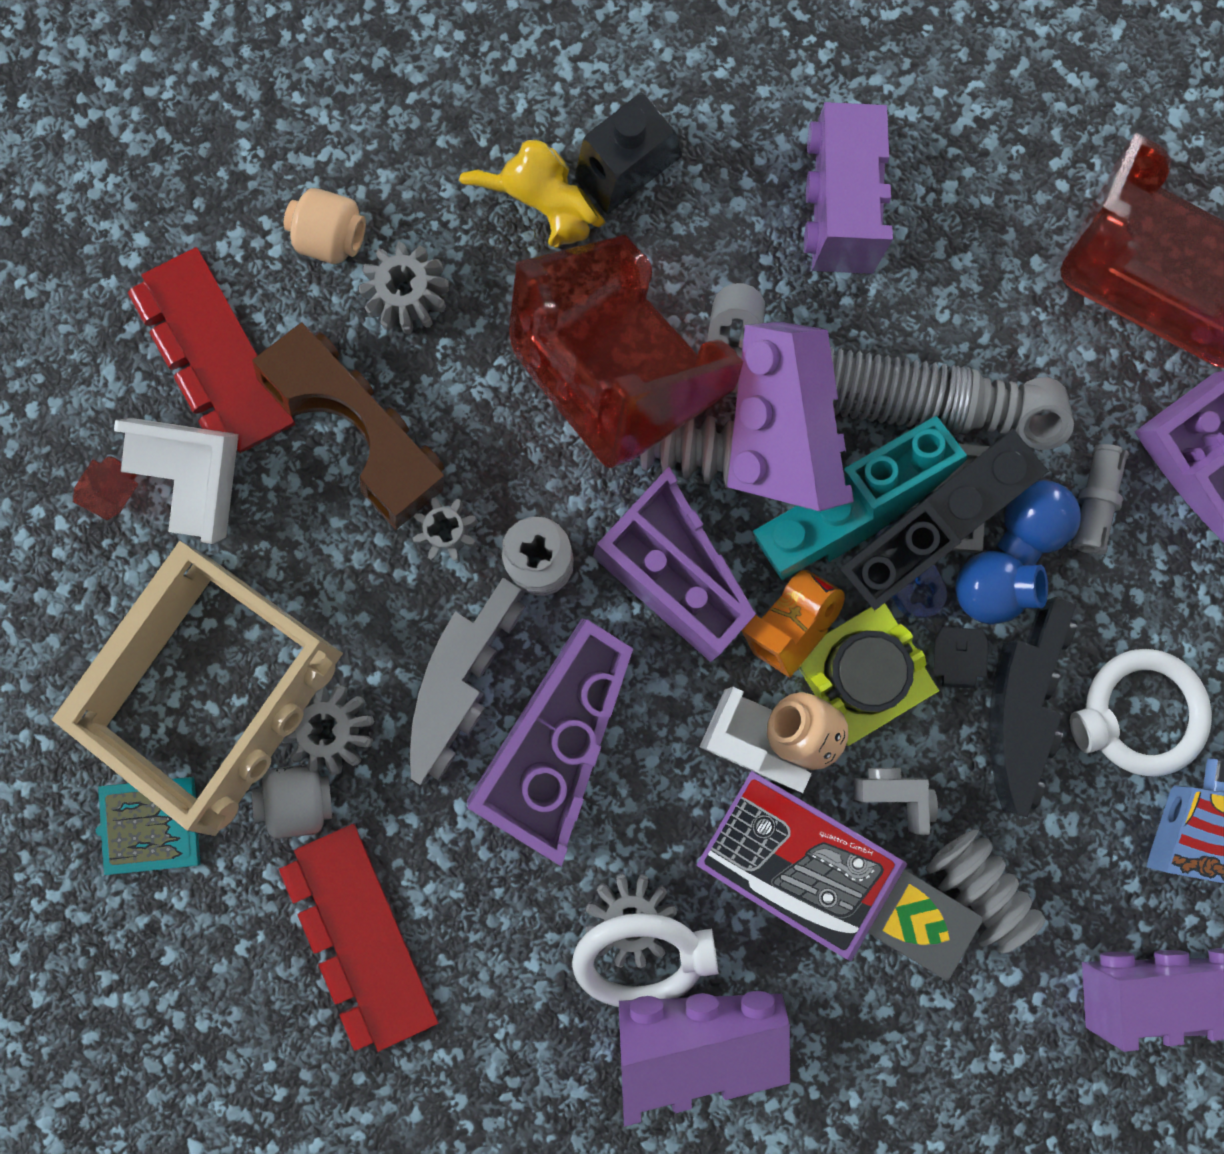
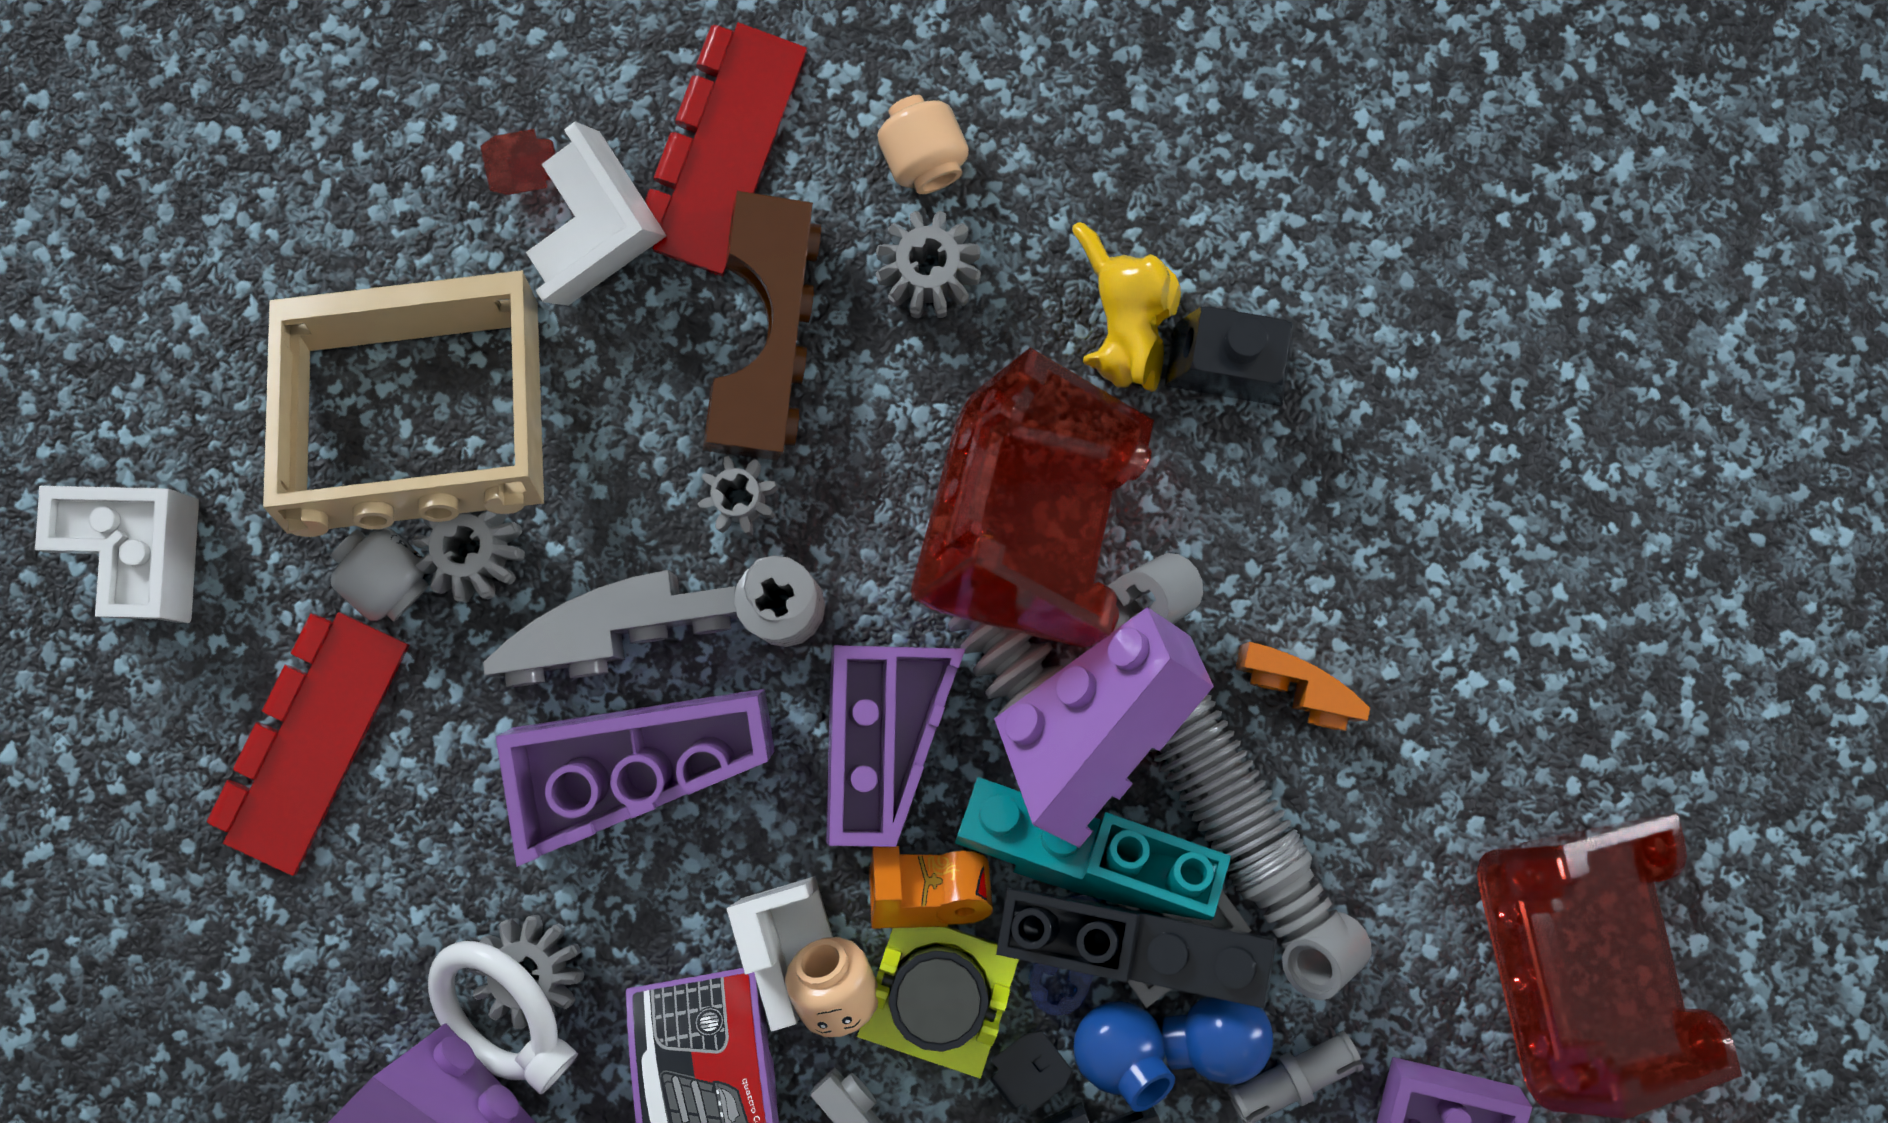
camera: 55 degrees right, 0 degrees up
(127, 936) = (141, 542): none -> white panel
(140, 834) = (232, 464): piece -> none
(848, 188) = (1382, 586): medium lavender wedge -> none
(874, 282) = (1317, 692): none -> orange slope

